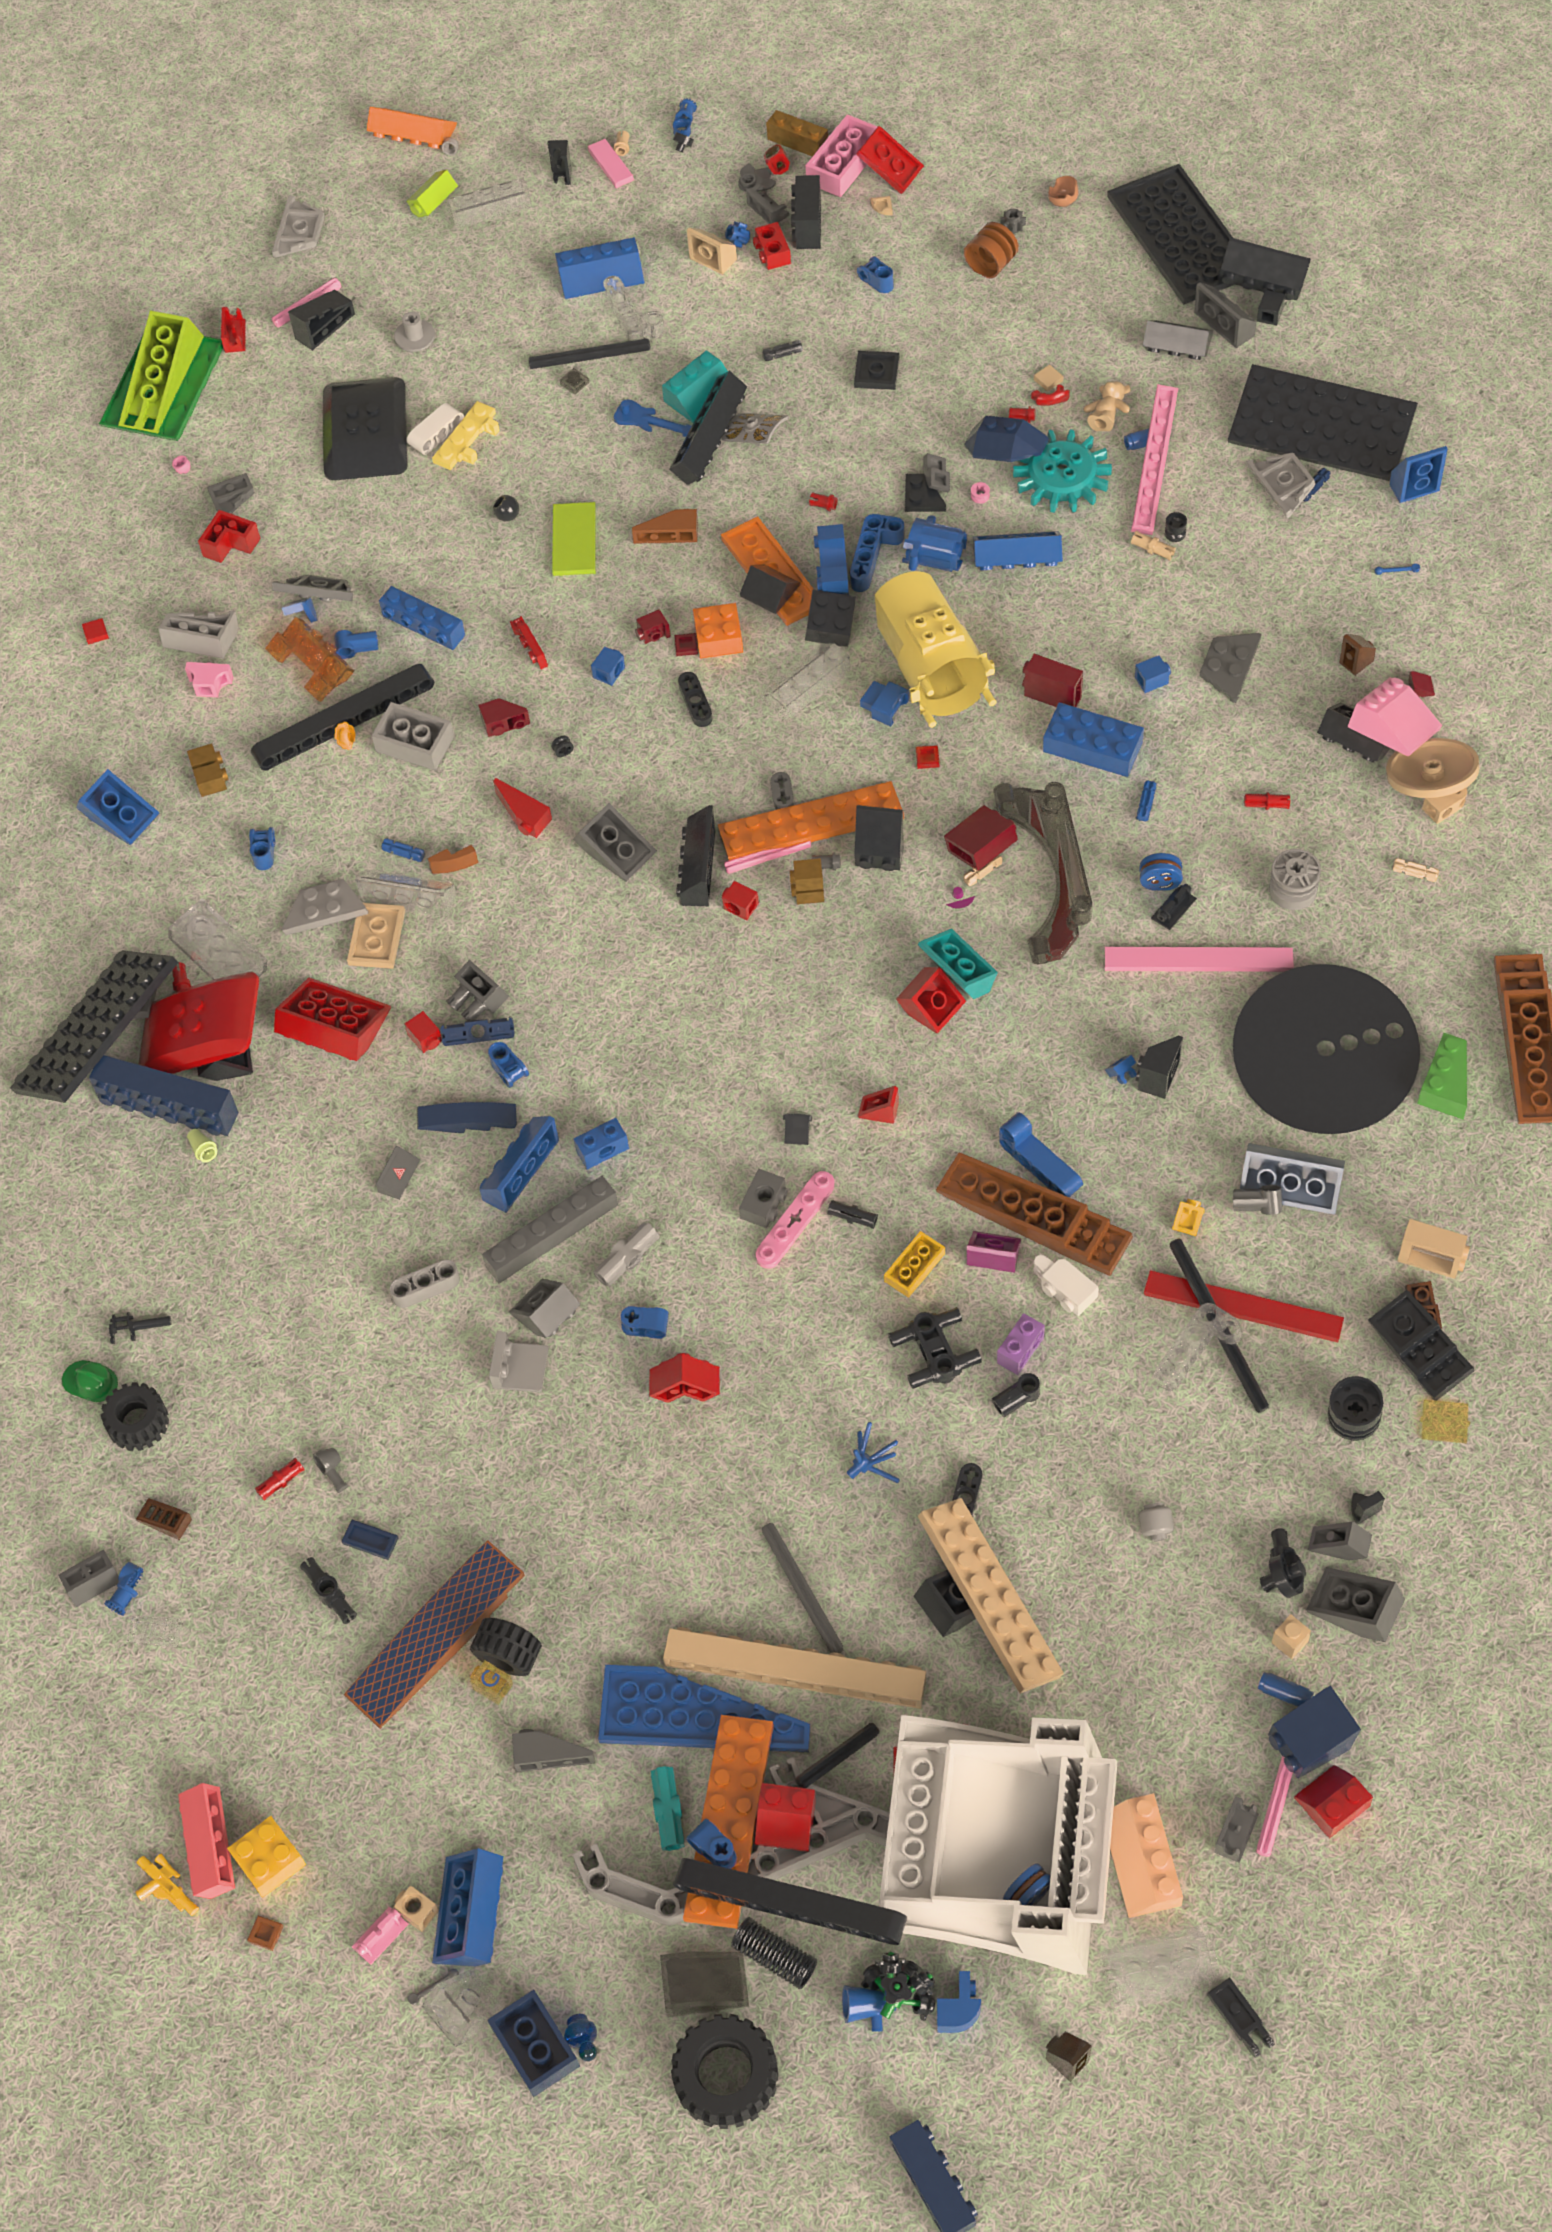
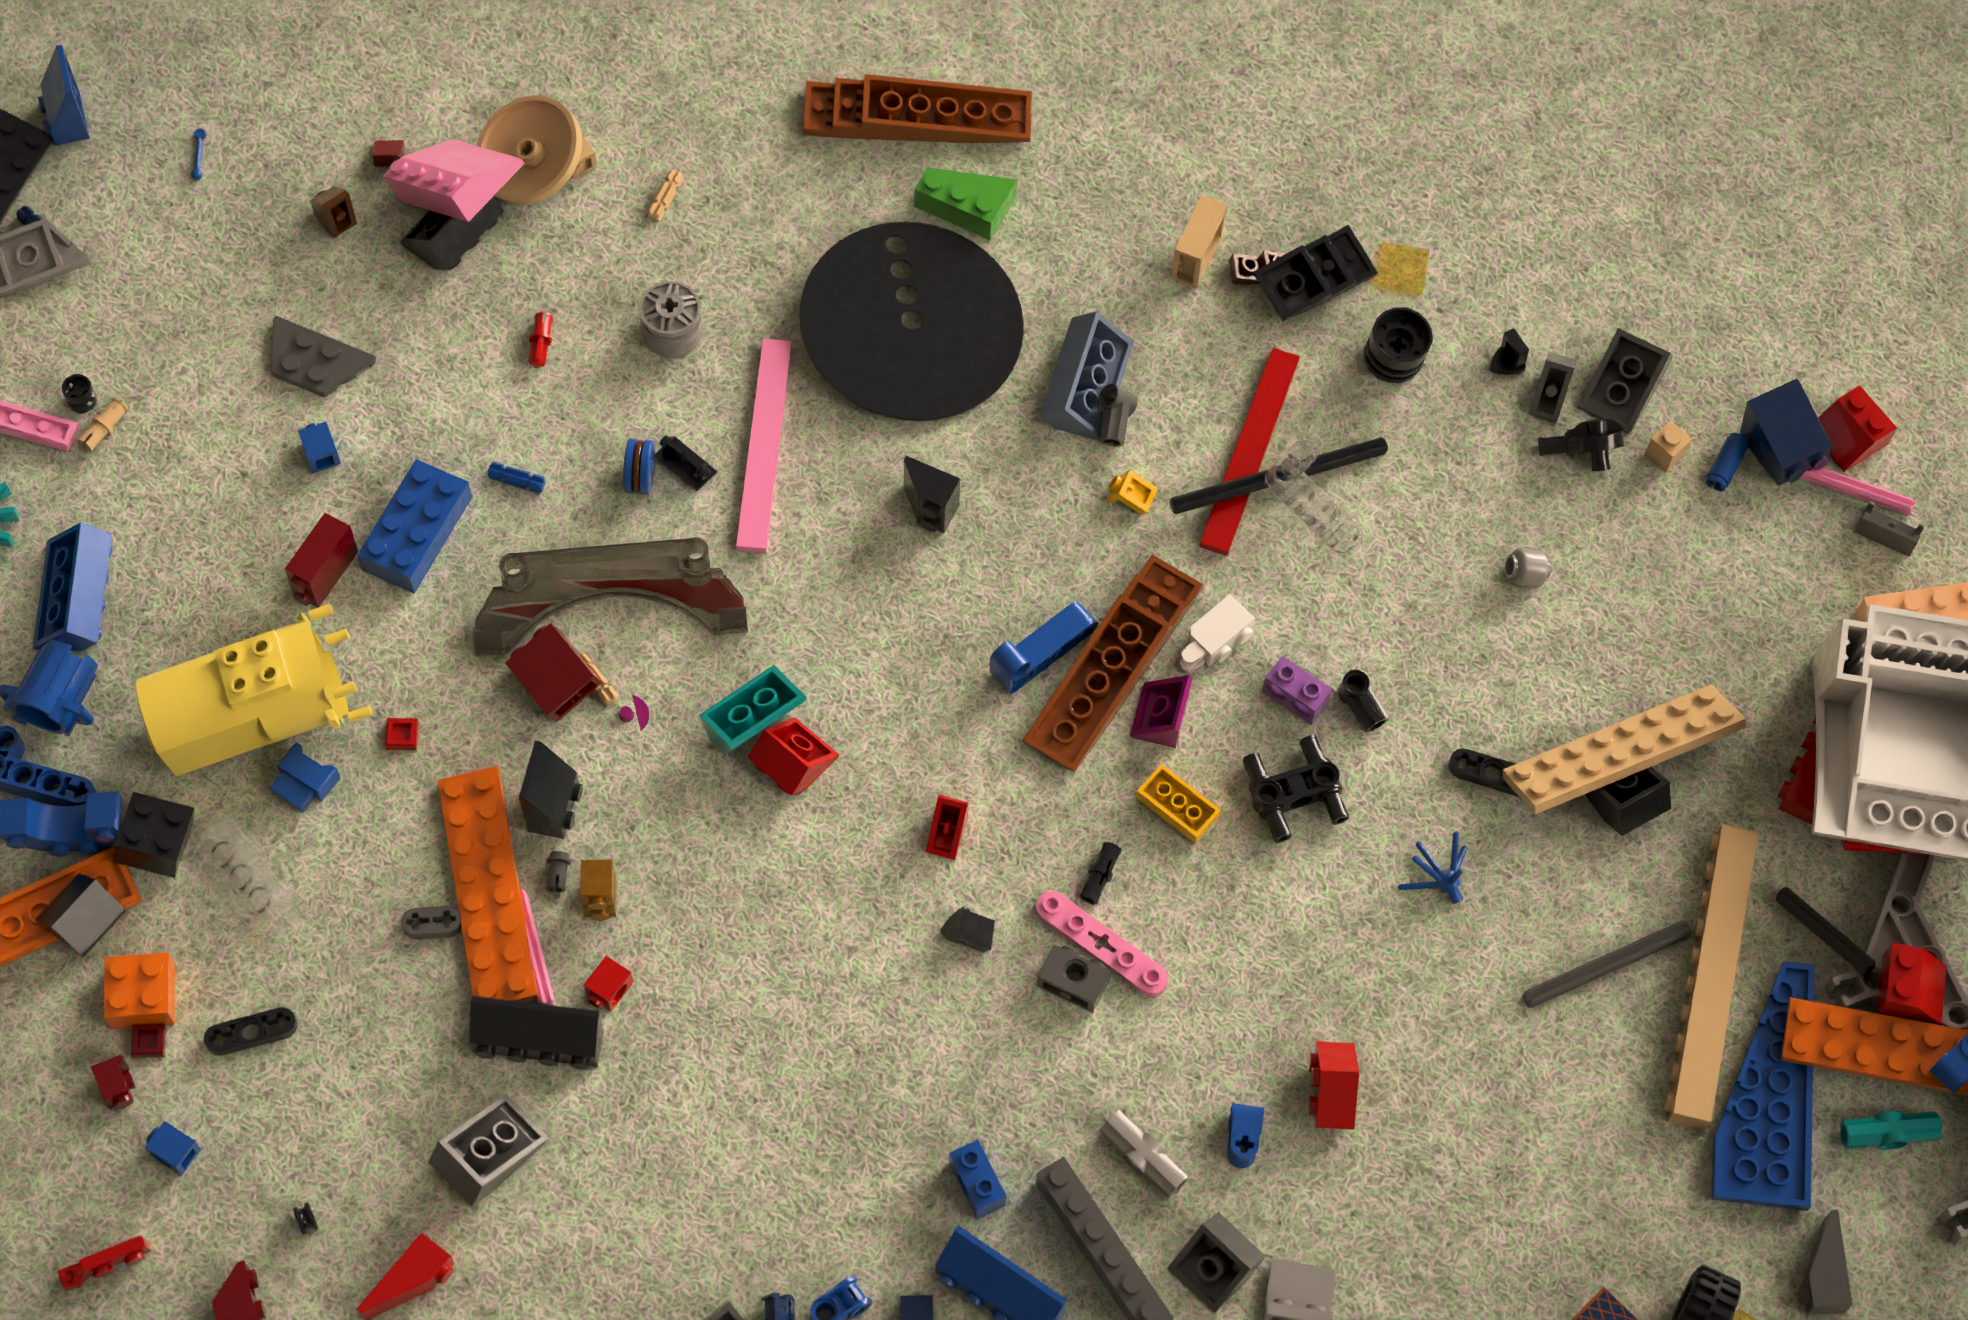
camera: 95 degrees left, 5 degrees up
(1120, 1067) = (917, 544): blue tile -> none

